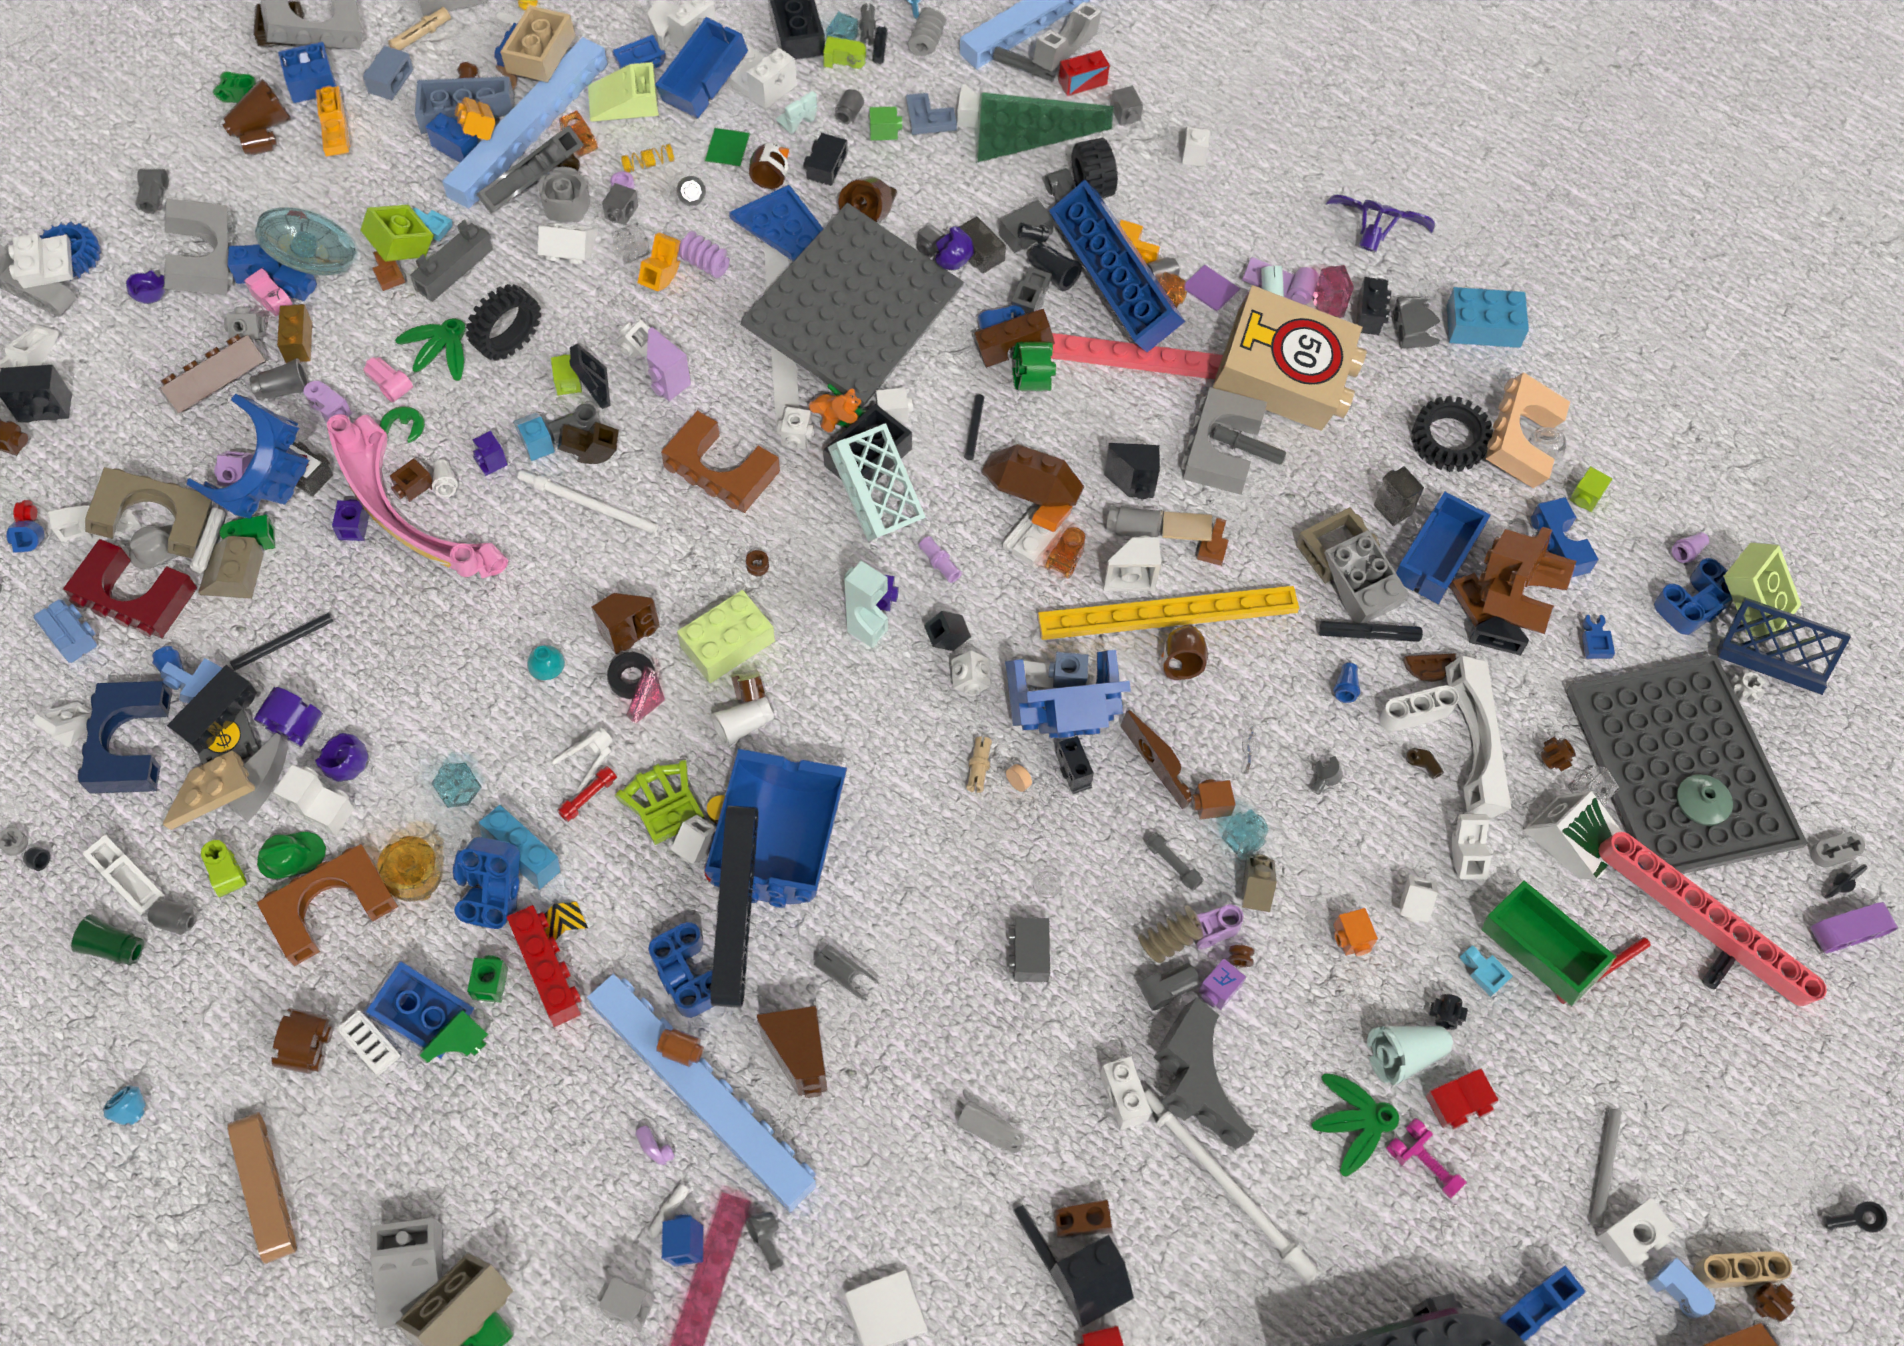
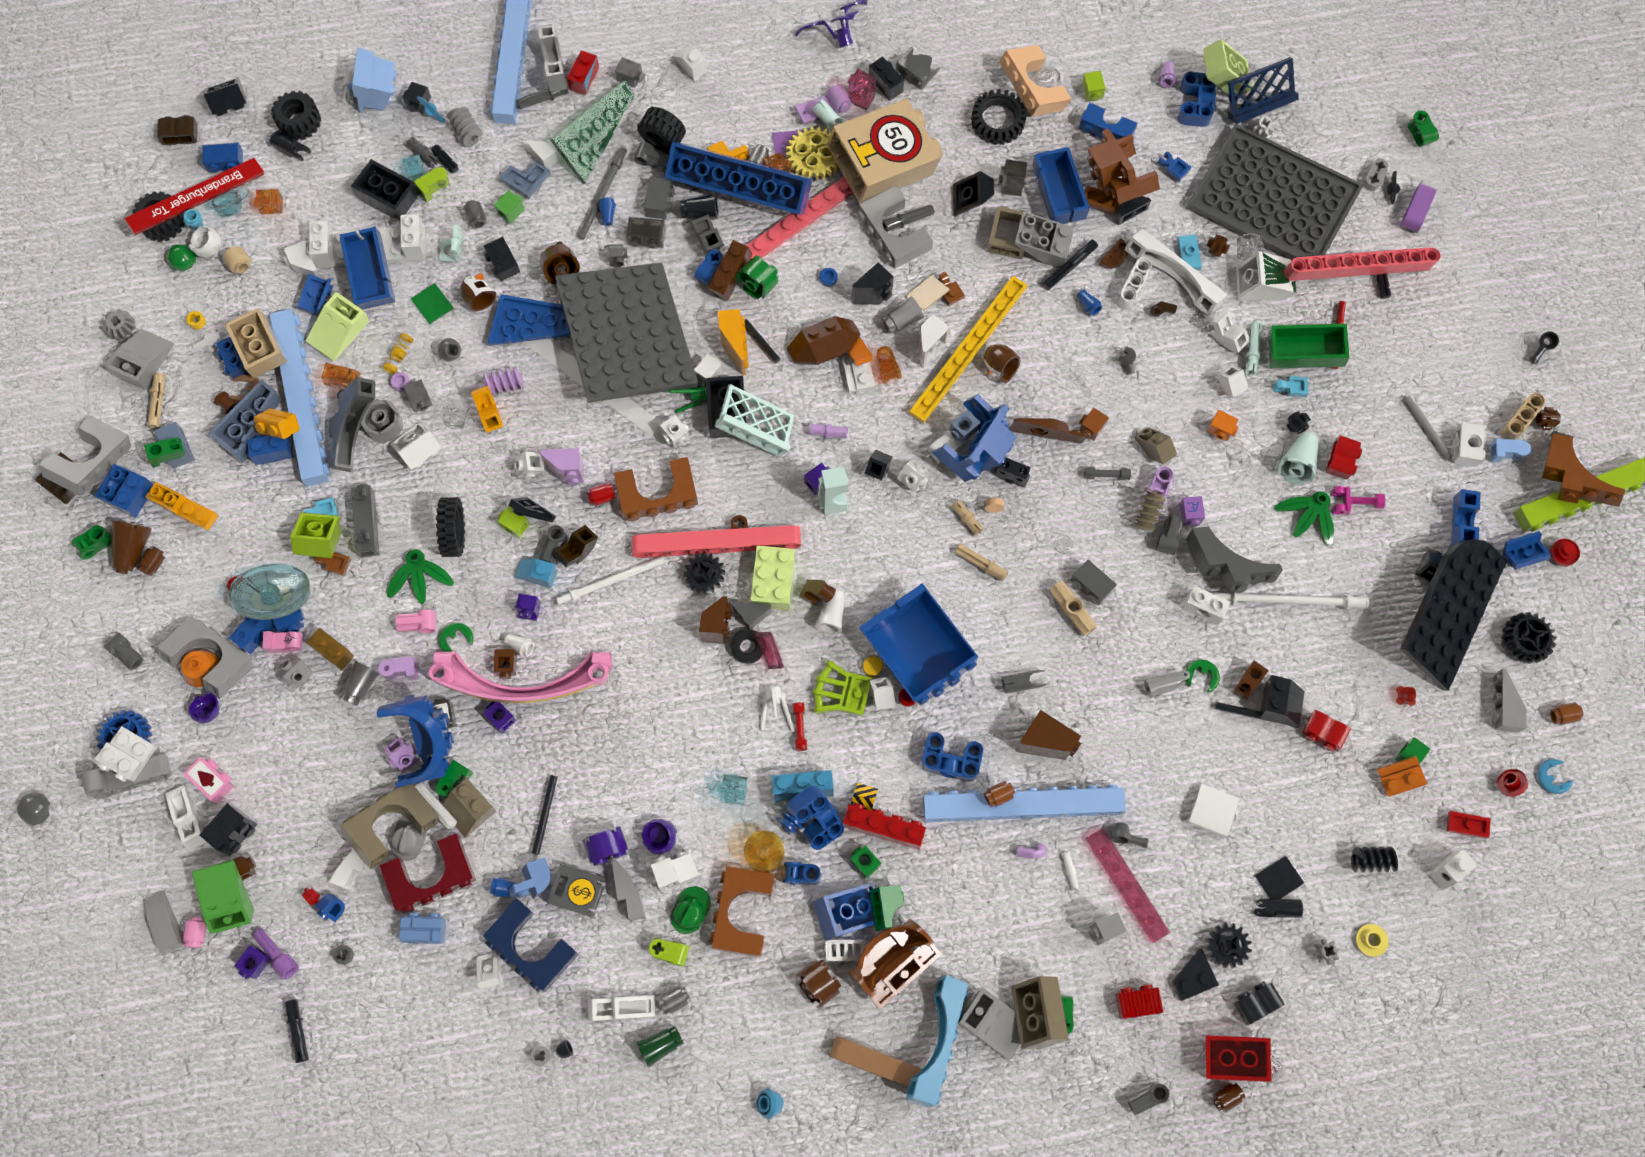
camera: 45 degrees left, 10 degrees up
(77, 344) = (209, 779): none -> brick
(184, 243) = (197, 666): none -> orange cone
(209, 788) = (612, 921): tan wing -> none
(211, 373) = (314, 718): brick -> none
(212, 709) = (565, 883): black brick -> none
(266, 1248) = (949, 999): none -> arch
(366, 62) = (164, 451): none -> green leg
(390, 1096) = (893, 962): none -> dark orange piece
(418, 924) = (800, 873): none -> blue piece
(545, 662) = (696, 684): teal brick -> none
(666, 420) = (601, 494): none -> red brick
(668, 649) = (751, 613): none -> dark grey slope
(673, 576) = (711, 569): none -> black gear
(682, 1240) = (1096, 876): blue brick -> none
(717, 556) = (715, 541): none -> coral beam
(734, 907) = (950, 702): black beam -> none
(835, 409) = (685, 402): orange animal -> none
(944, 828) = (982, 562): none -> tan axle
(949, 394) = (734, 337): none -> light orange slope
(954, 249) = (640, 248): dark purple hair -> none
(967, 199) = (607, 210): none -> blue cone
(977, 969) = (1065, 598): none -> tan piece
(1024, 170) = (616, 164): none -> dark grey bar
(1033, 232) = (674, 196): black pin -> none
(1054, 1156) = (1205, 666): none -> green head
(1106, 429) = (828, 277): none -> blue tile
(1213, 309) = (813, 154): none -> light yellow gear
(1241, 955) = (1185, 488): reddish brown bush -> none
(1246, 832) = (1126, 426): clear light blue brick -> none
(1343, 476) = (972, 192): none -> black slope
(1474, 897) = (1254, 346): none -> light aqua pin
(1487, 317) = (948, 31): dark azure brick -> none
(1520, 734) = (1189, 250): none -> medium azure plate
(1700, 808) = (1302, 212): sand green dish -> none

